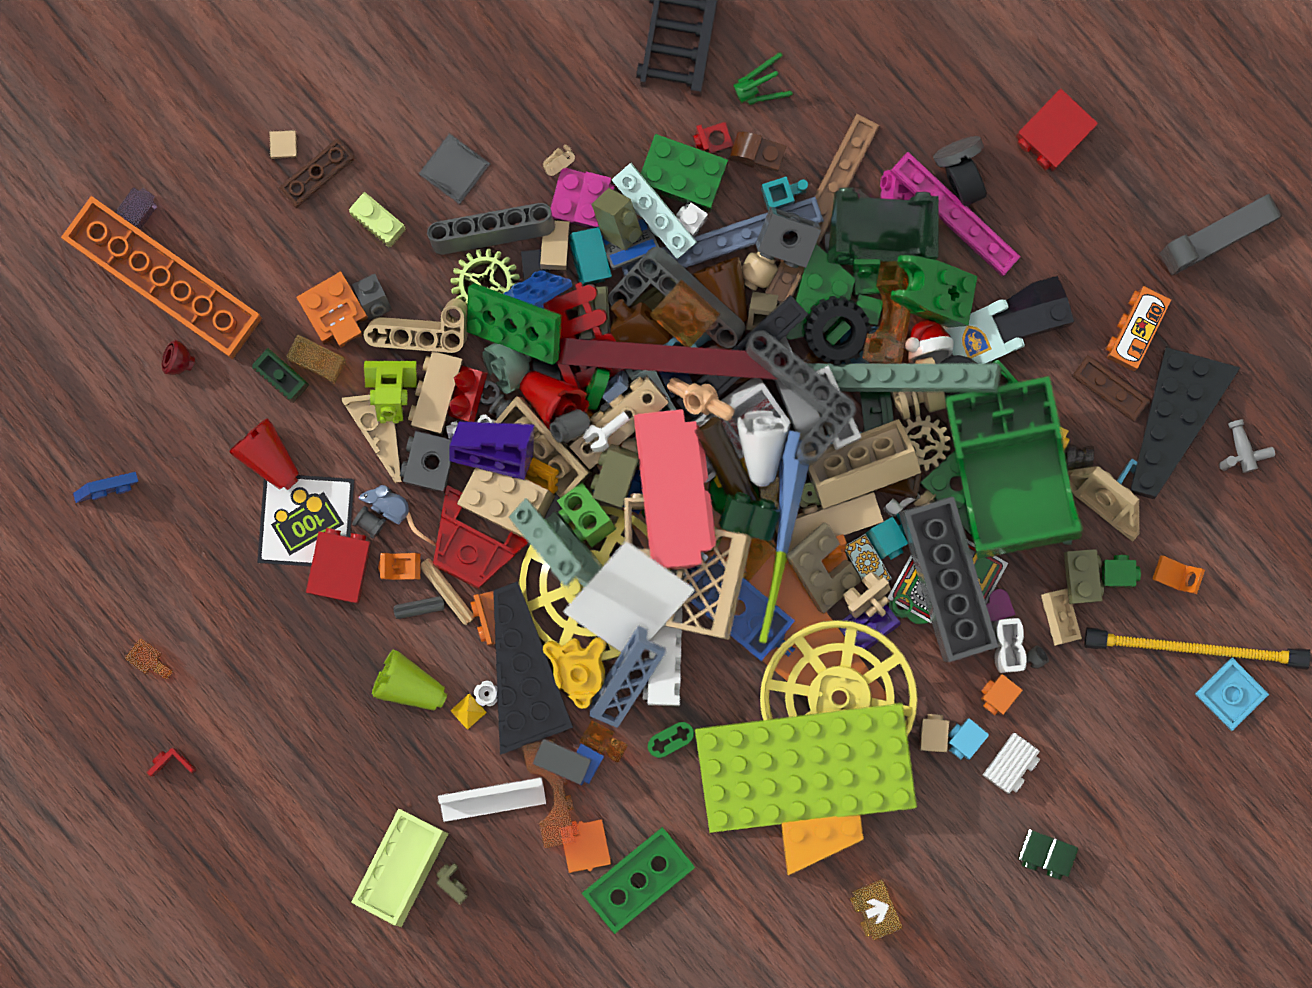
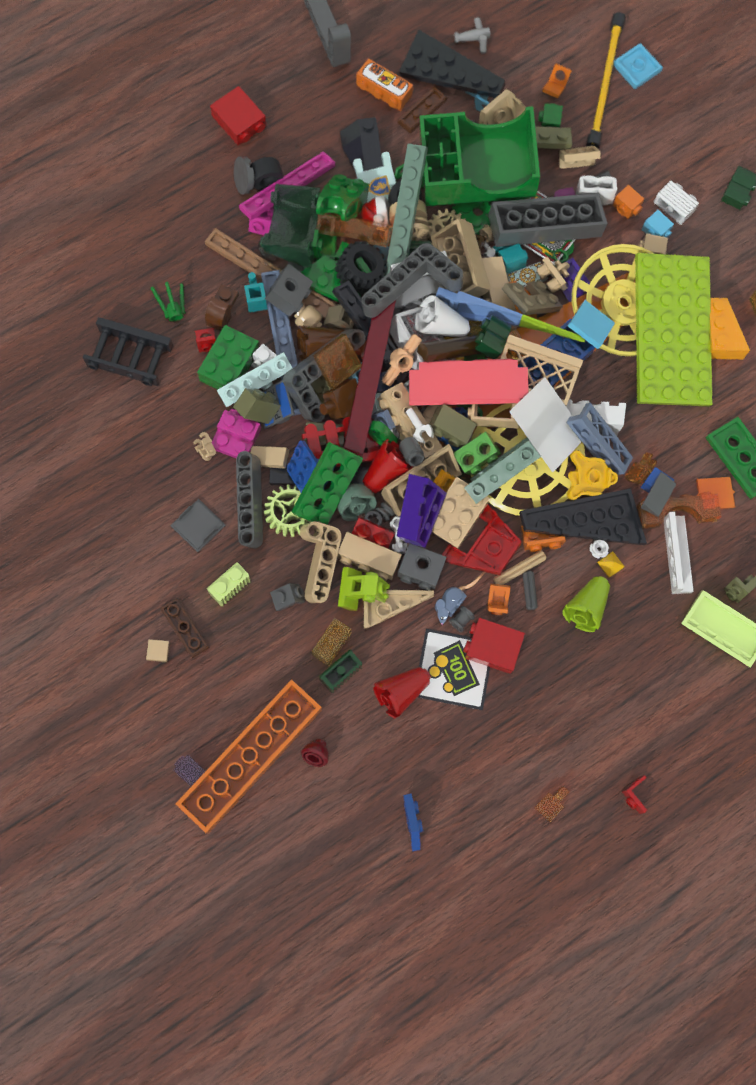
camera: 90 degrees left, 10 degrees down
(333, 310) = (294, 626): orange piece -> none
(589, 256) = (281, 433): teal hinge -> none
(667, 734) = (646, 423): green beam -> none
(786, 648) = (591, 324): none -> medium azure tile

